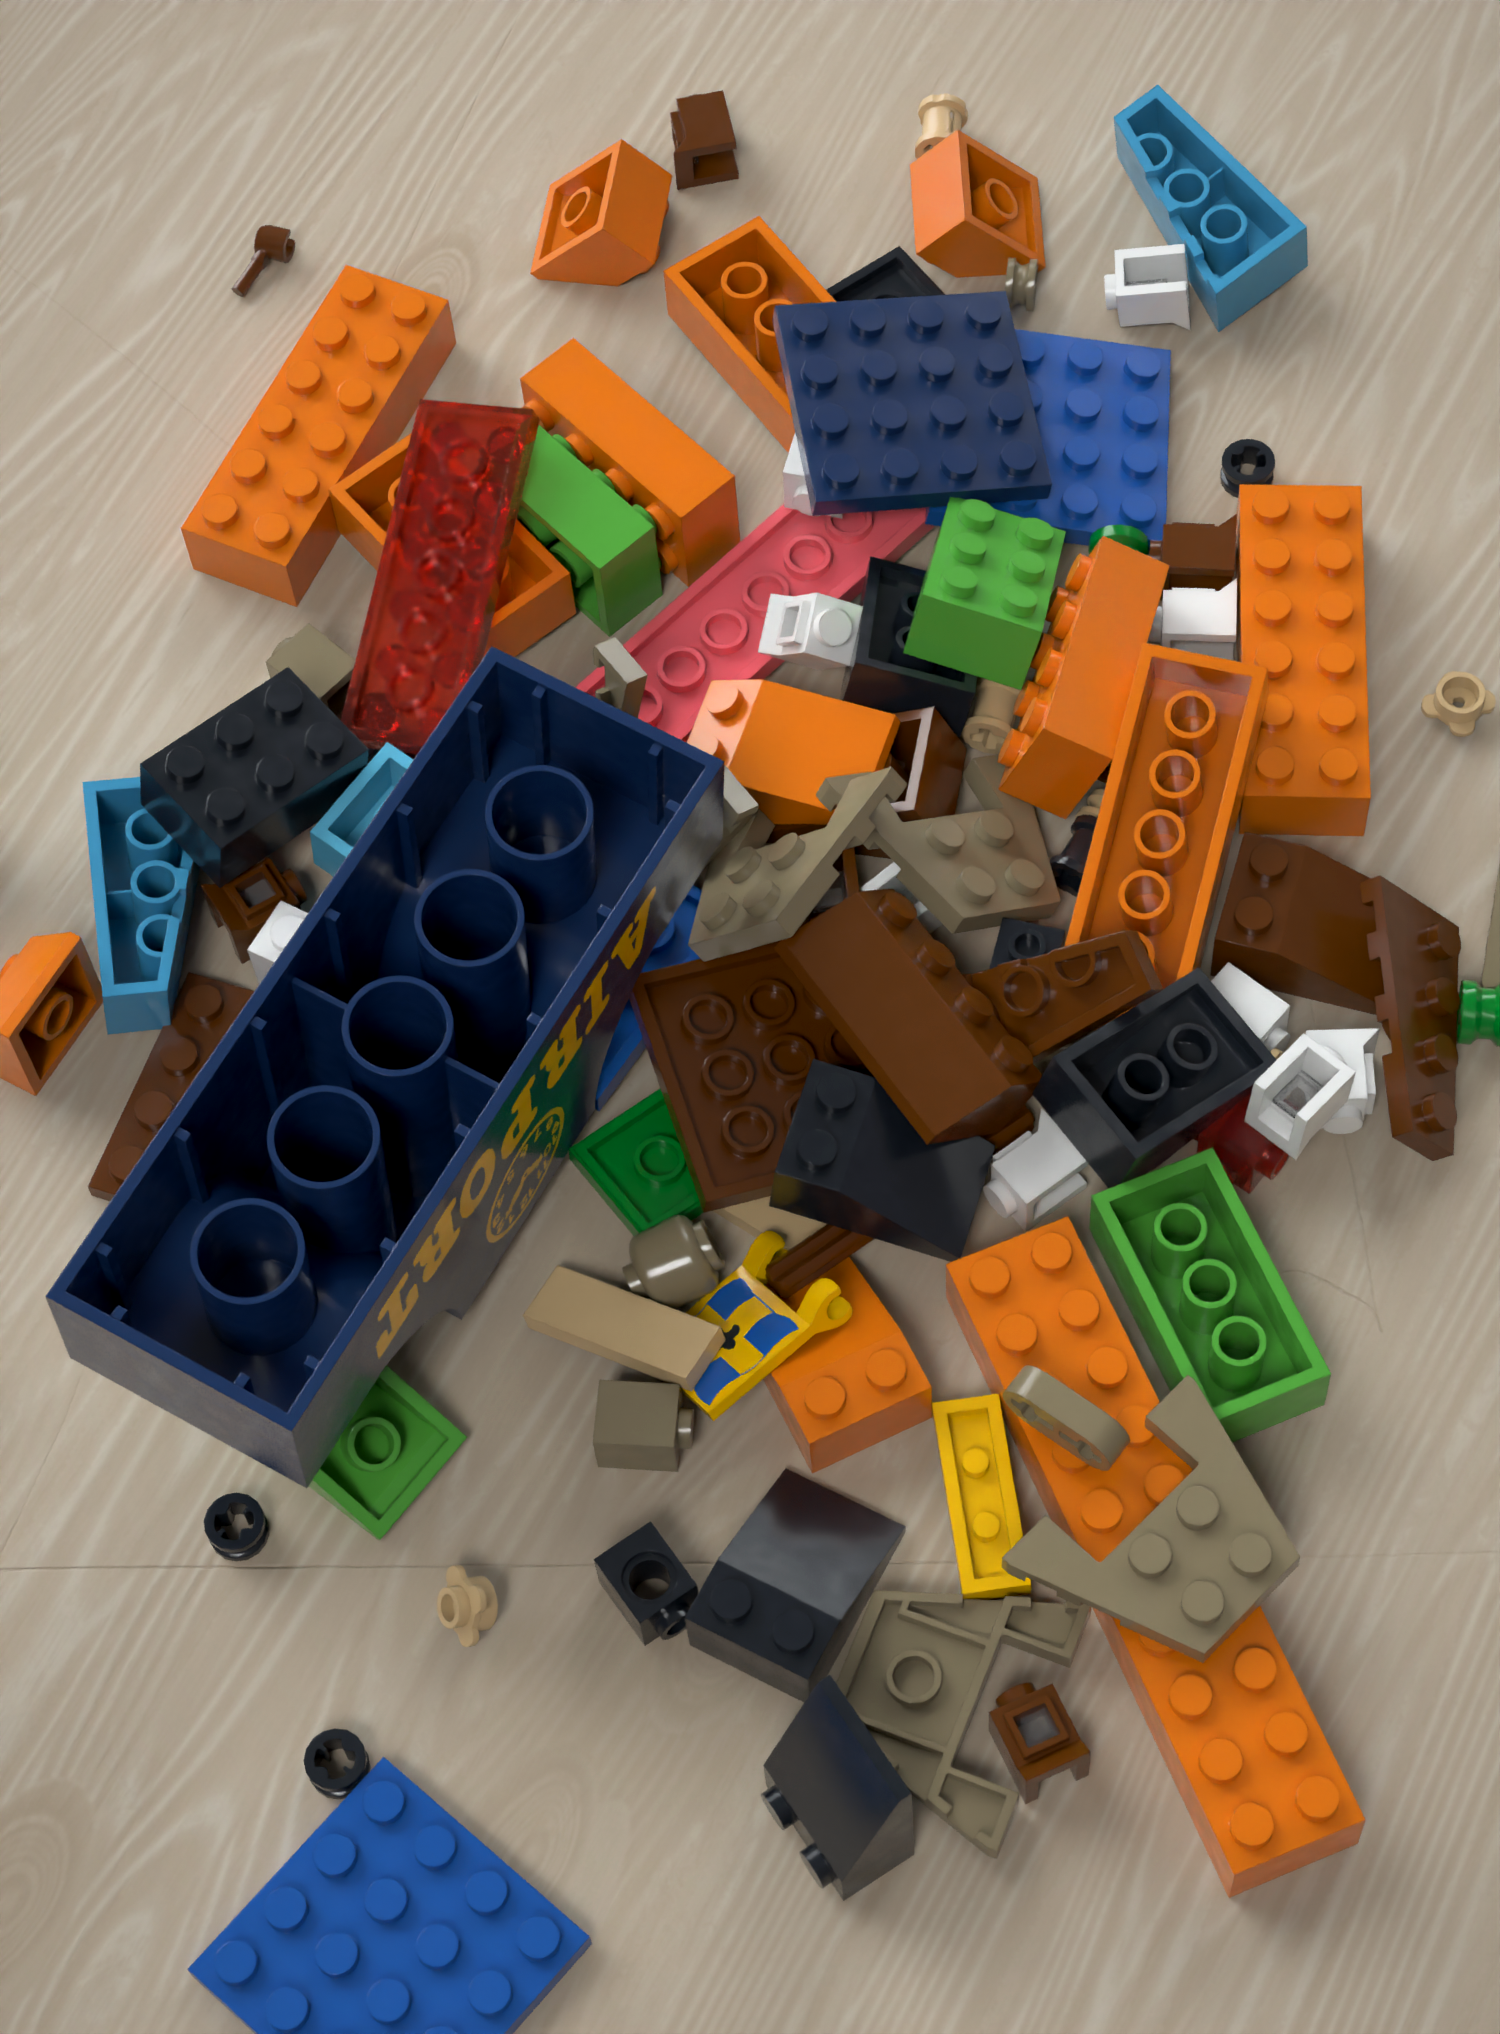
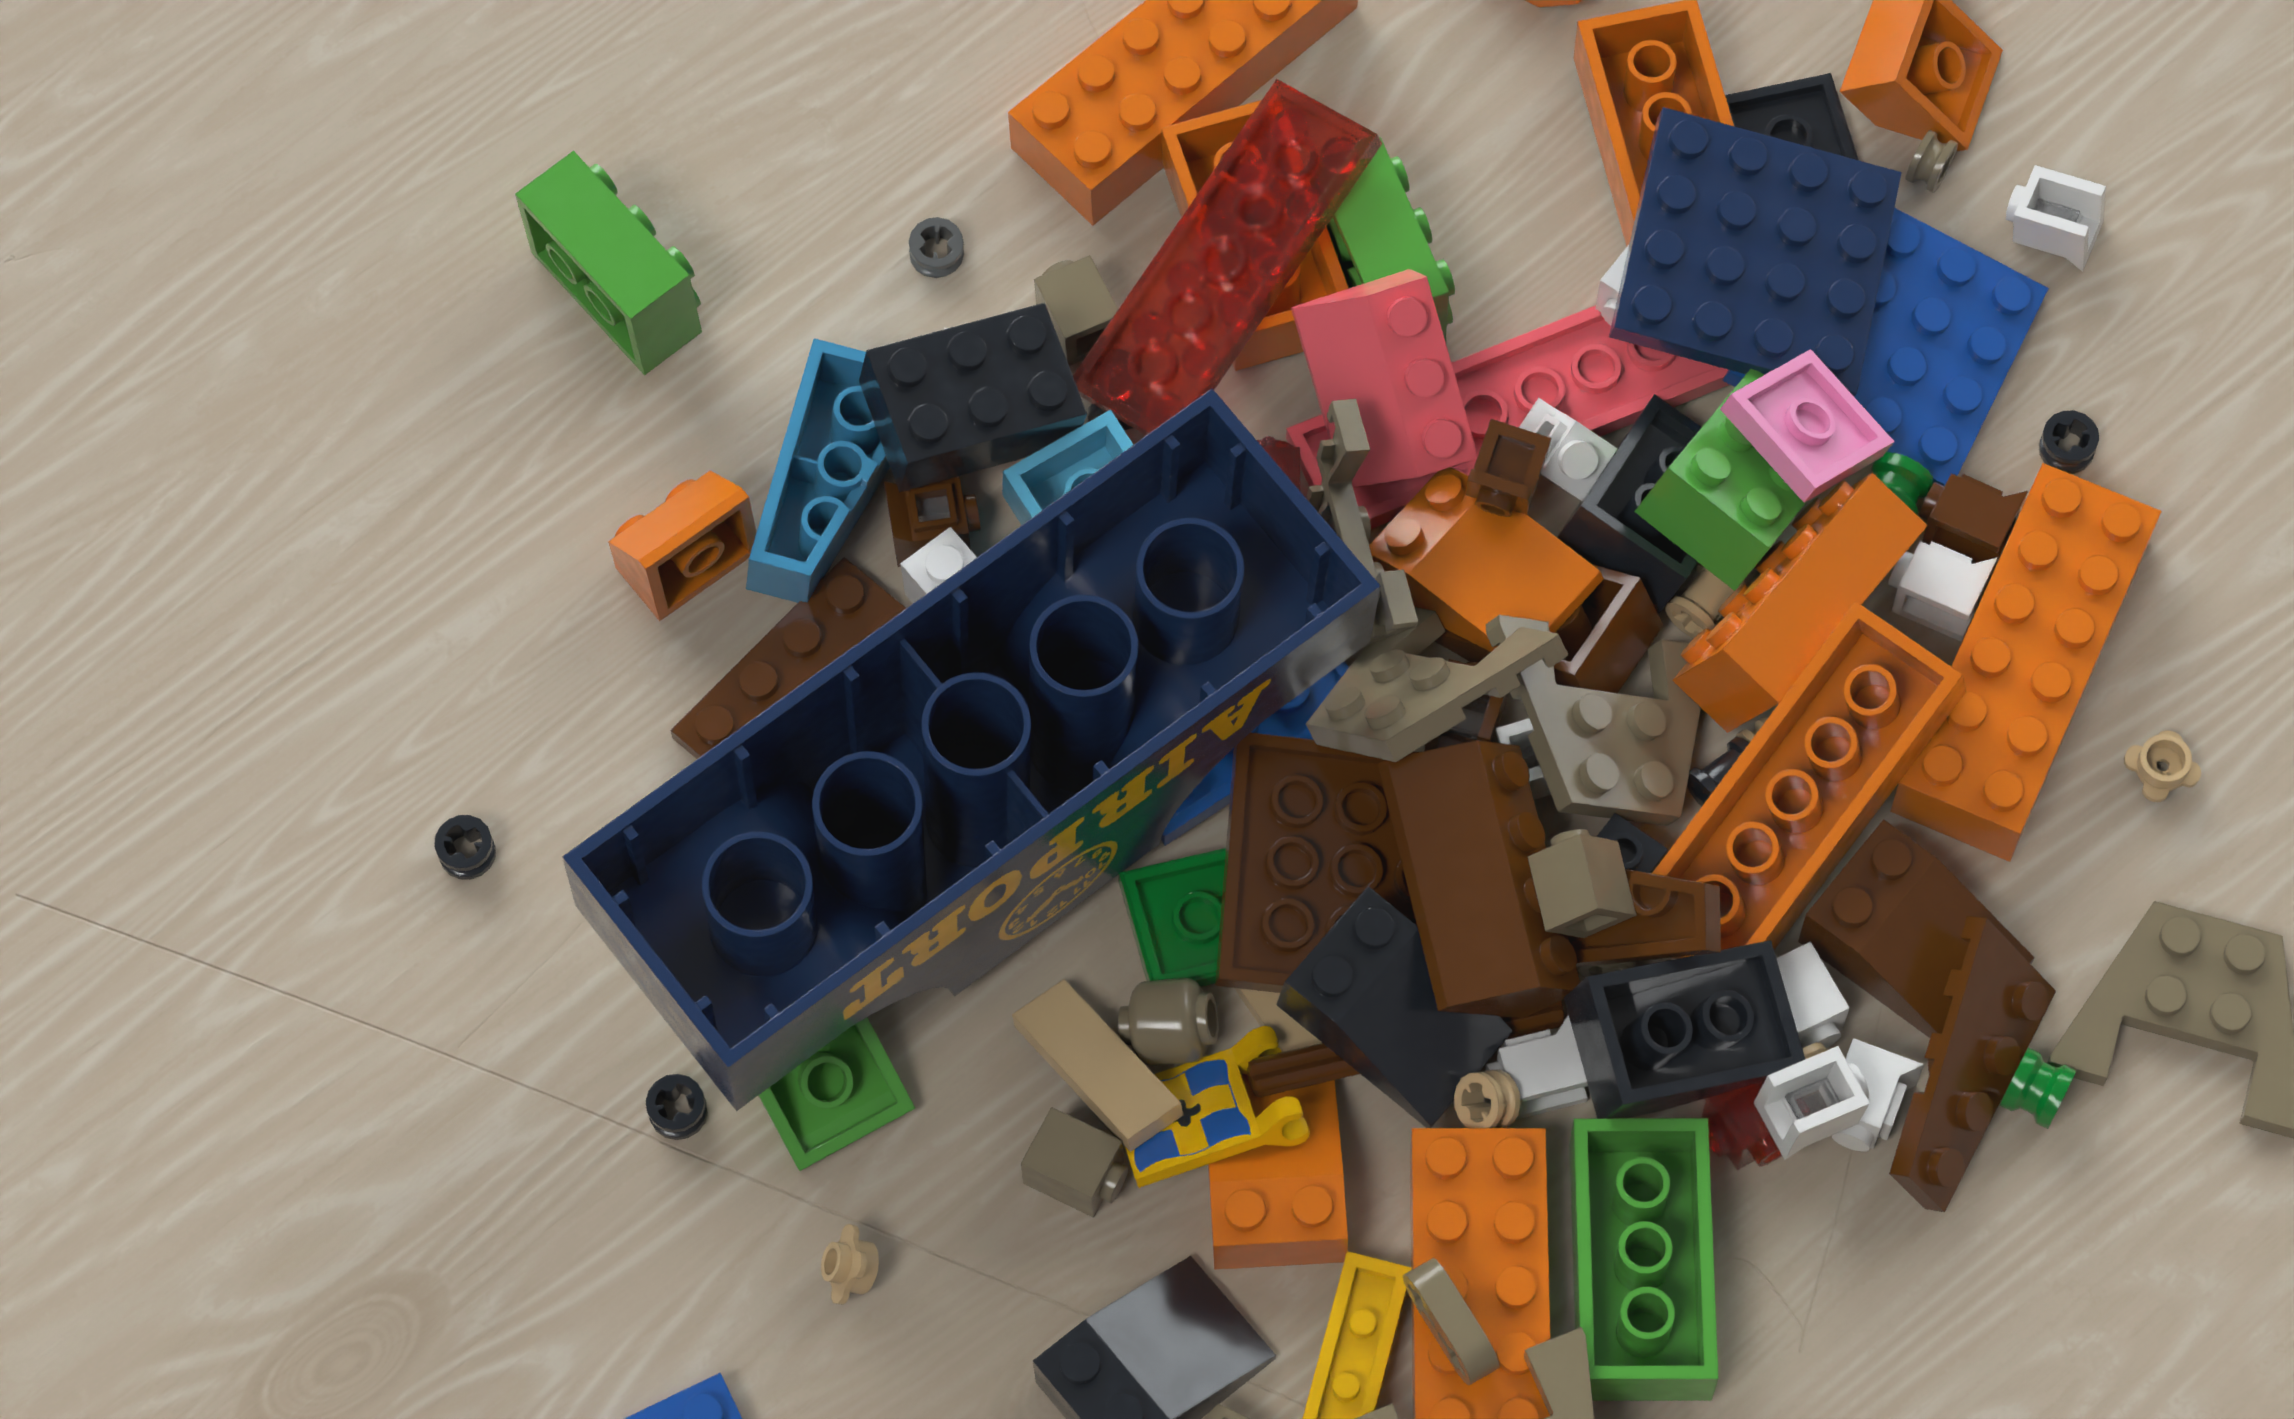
camera: 20 degrees right, 5 degrees up
(154, 659) = (937, 229): none -> dark grey bush
(321, 1747) = (668, 1341): black bush -> none
(630, 589) = (1392, 357): none -> coral slope
(638, 1559) = (1014, 1287): black brick -> none
(641, 455) = (1468, 207): orange brick -> none
(774, 655) = (1507, 469): none -> reddish brown bracket
(1003, 1196) = (1493, 1085): none -> tan bush
(1008, 981) = (1581, 884): none -> dark tan brick
(1025, 519) = (1807, 425): none -> bright pink plate
(1232, 227) = (2155, 166): dark azure wedge -> none

